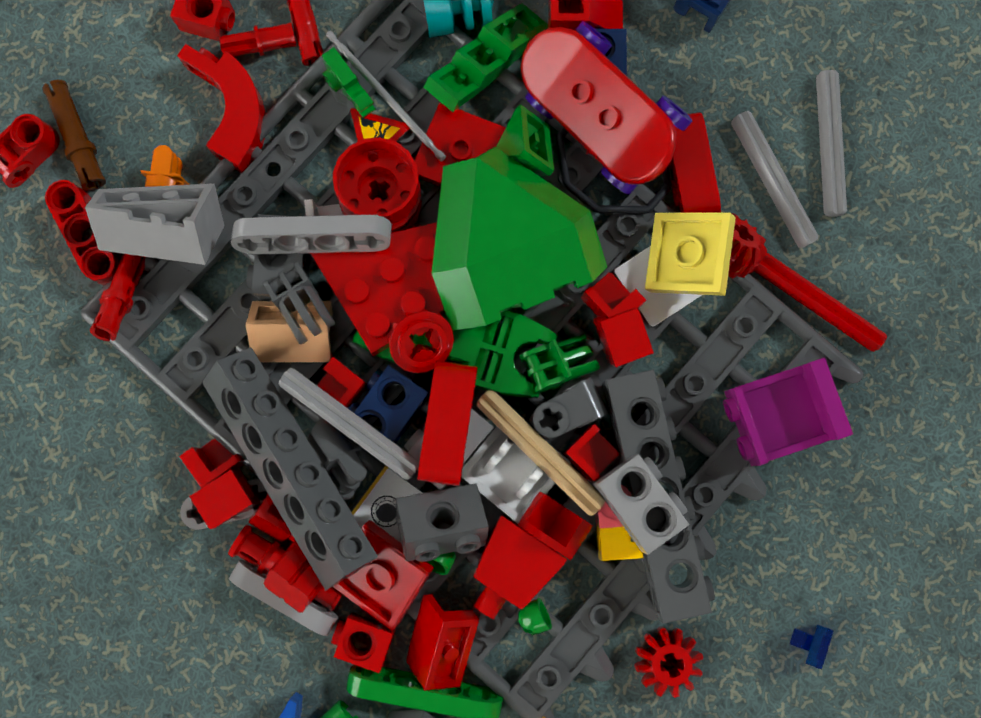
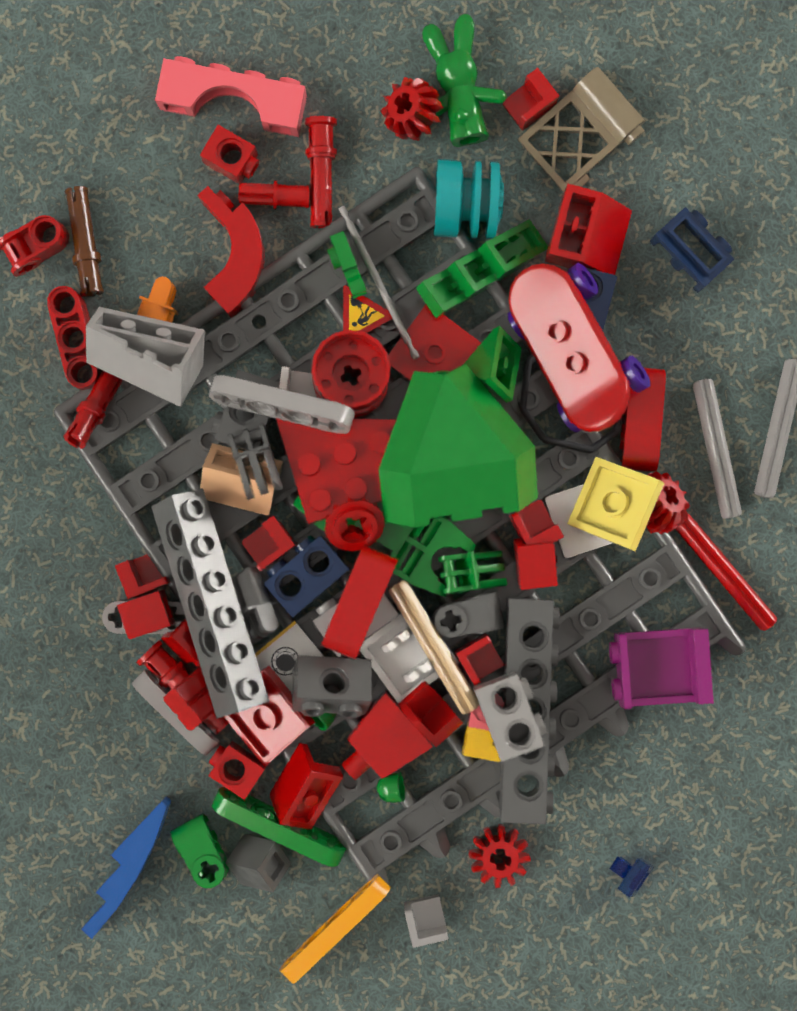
camera: 10 degrees right, 5 degrees up
(349, 423) = (272, 579): light grey axle -> none

